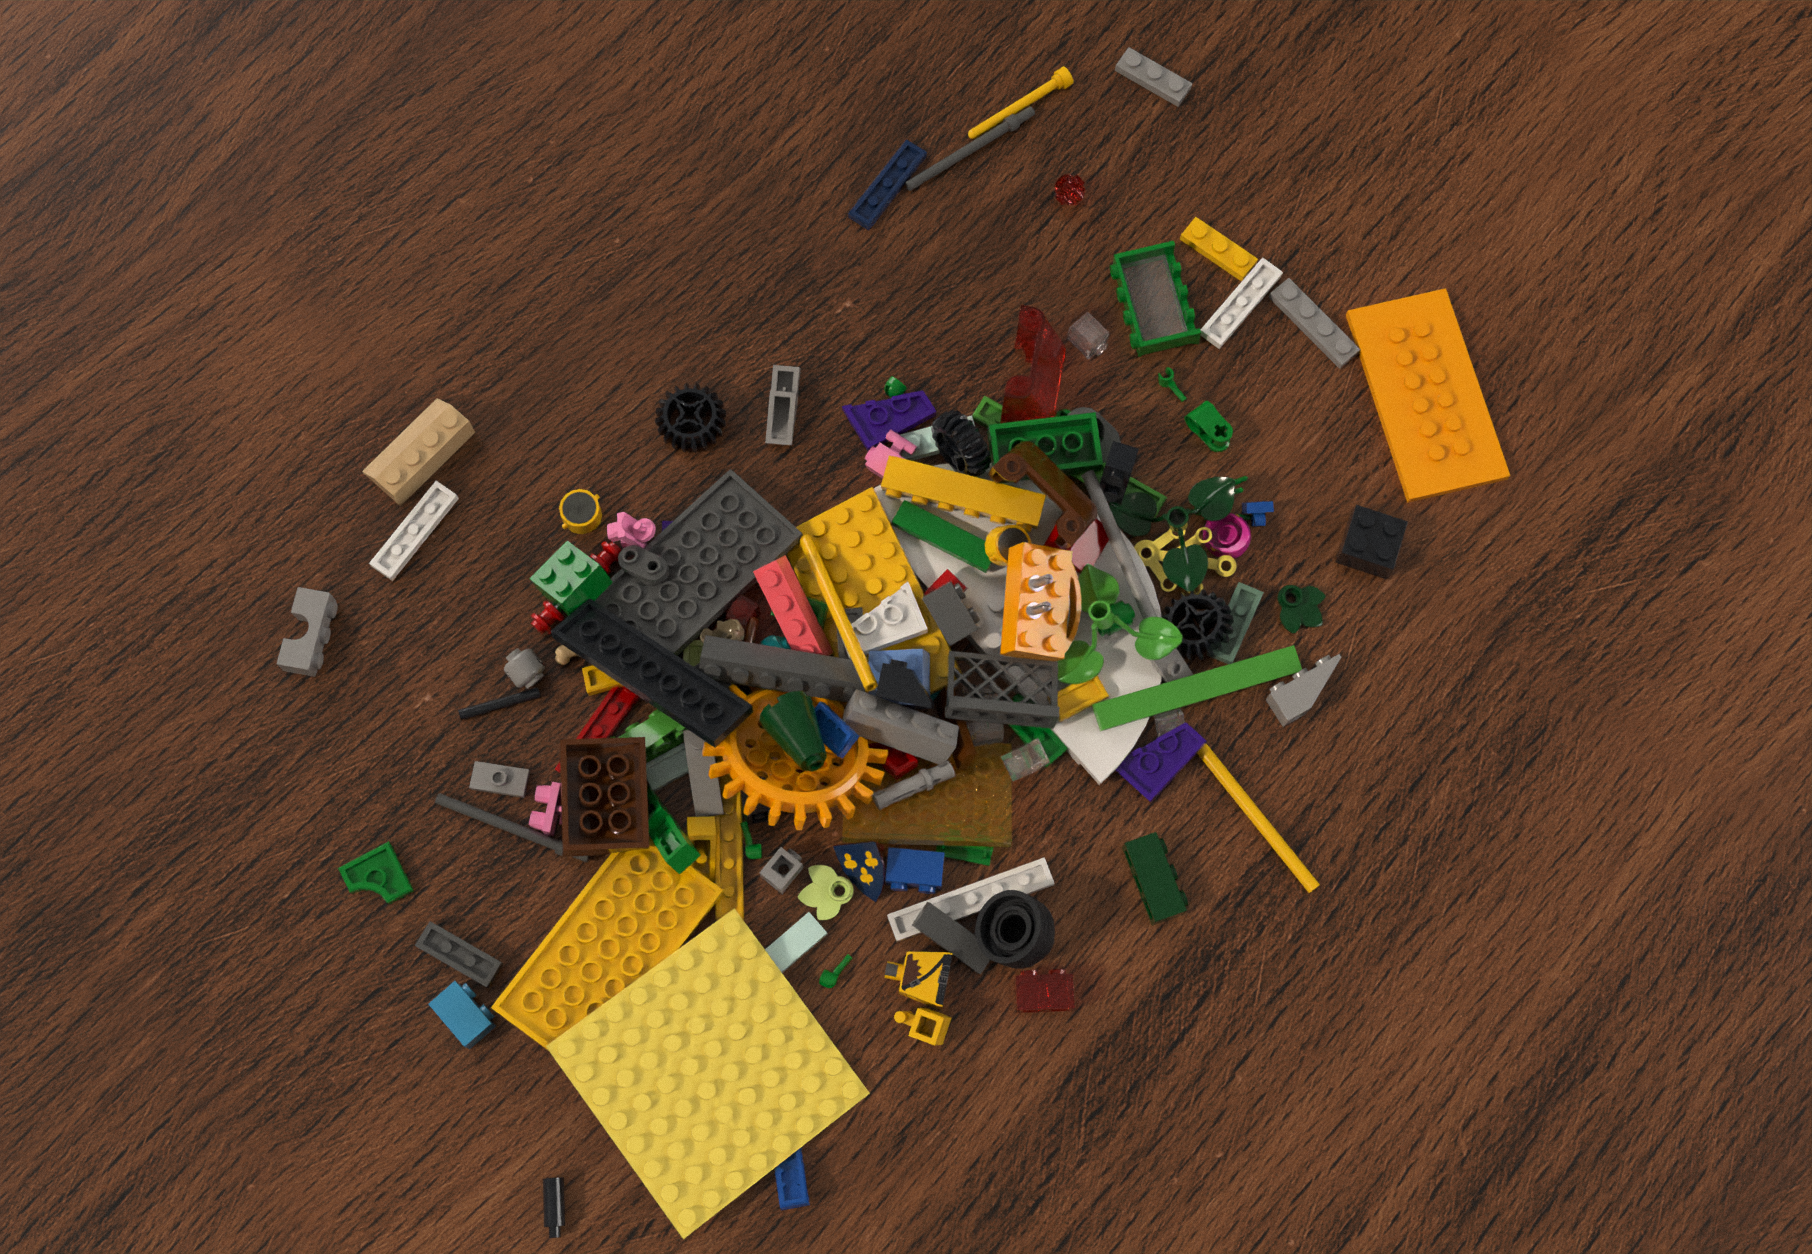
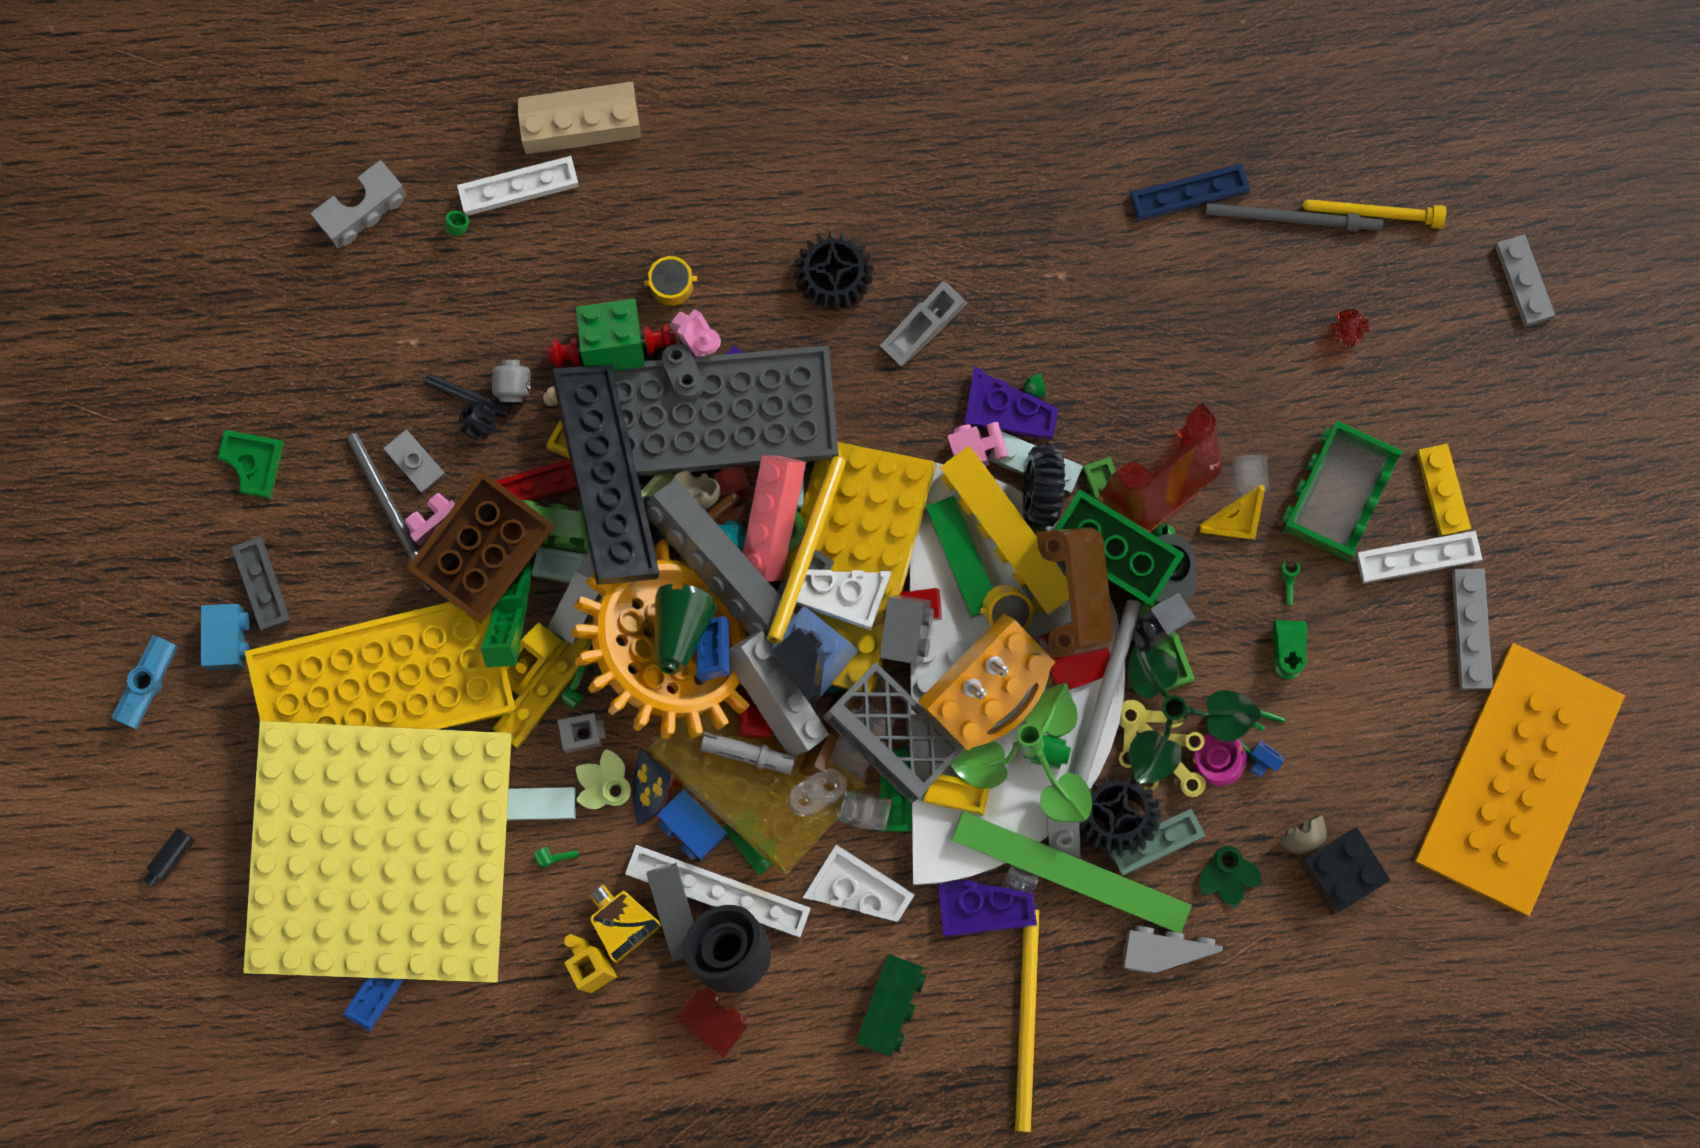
camera: 40 degrees right, 5 degrees up
(390, 590) = (460, 223): none -> green hinge
(433, 1114) = (136, 700): none -> dark azure piece
(523, 714) = (477, 421): none -> black gear
(983, 775) = (815, 793): none -> clear plate
(1061, 817) = (858, 886): none -> white wing
(1104, 368) = (1237, 519): none -> yellow tile
(1330, 539) = (1308, 839): none -> dark tan hair

